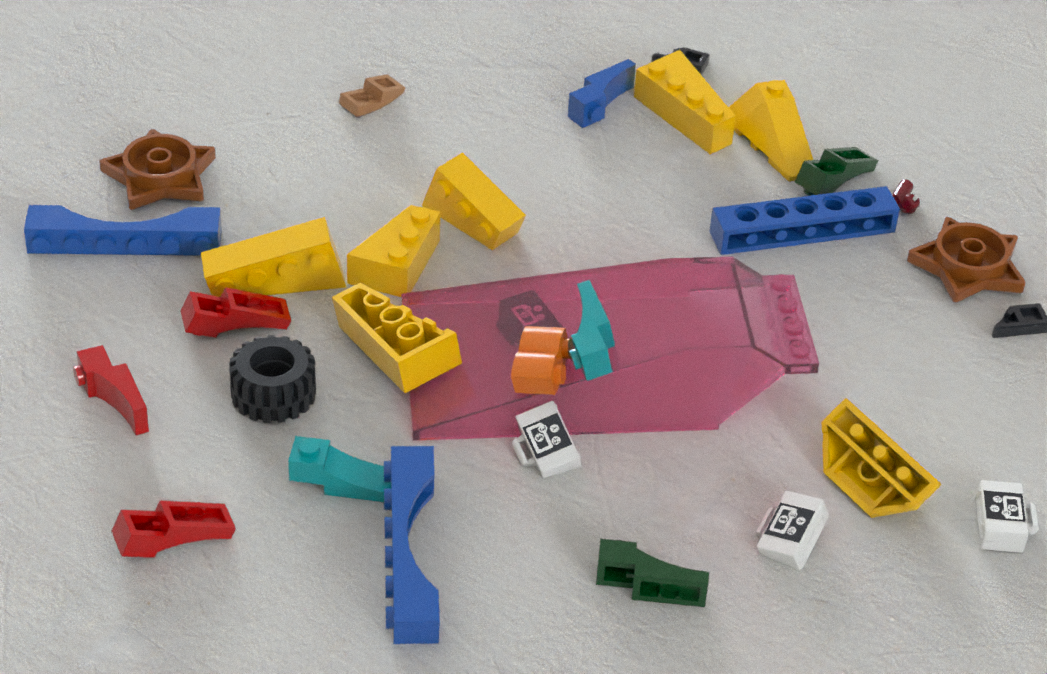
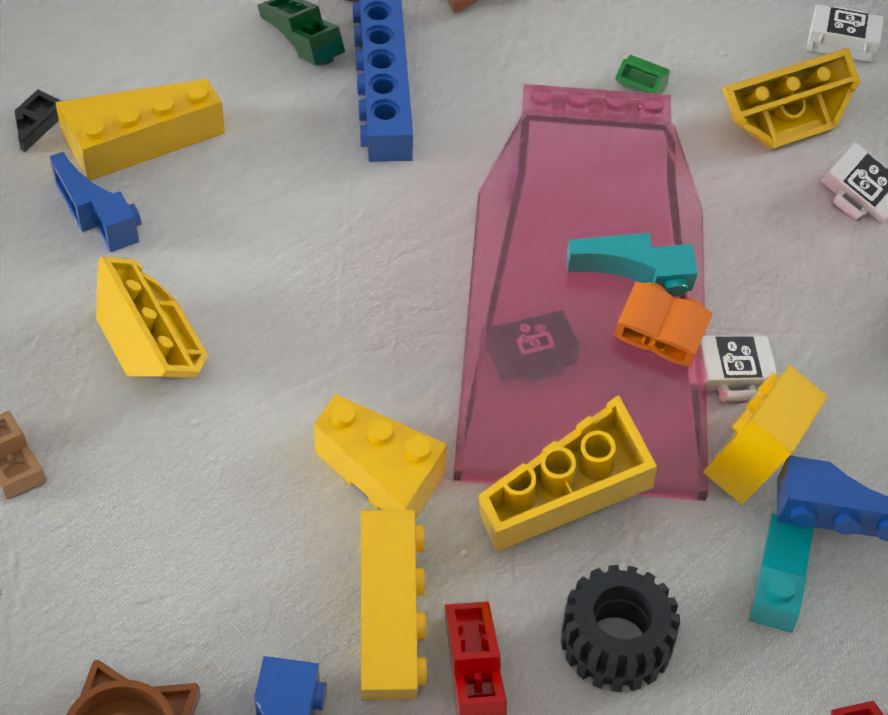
camera: 80 degrees left, 10 degrees up
(473, 202) = (299, 366): yellow wedge -> none
(475, 449) = (765, 433): none -> yellow wedge
(491, 129) = (145, 323): none -> yellow wedge
(773, 125) = (196, 53): yellow wedge -> none
(871, 376) = (639, 81): none -> green piece

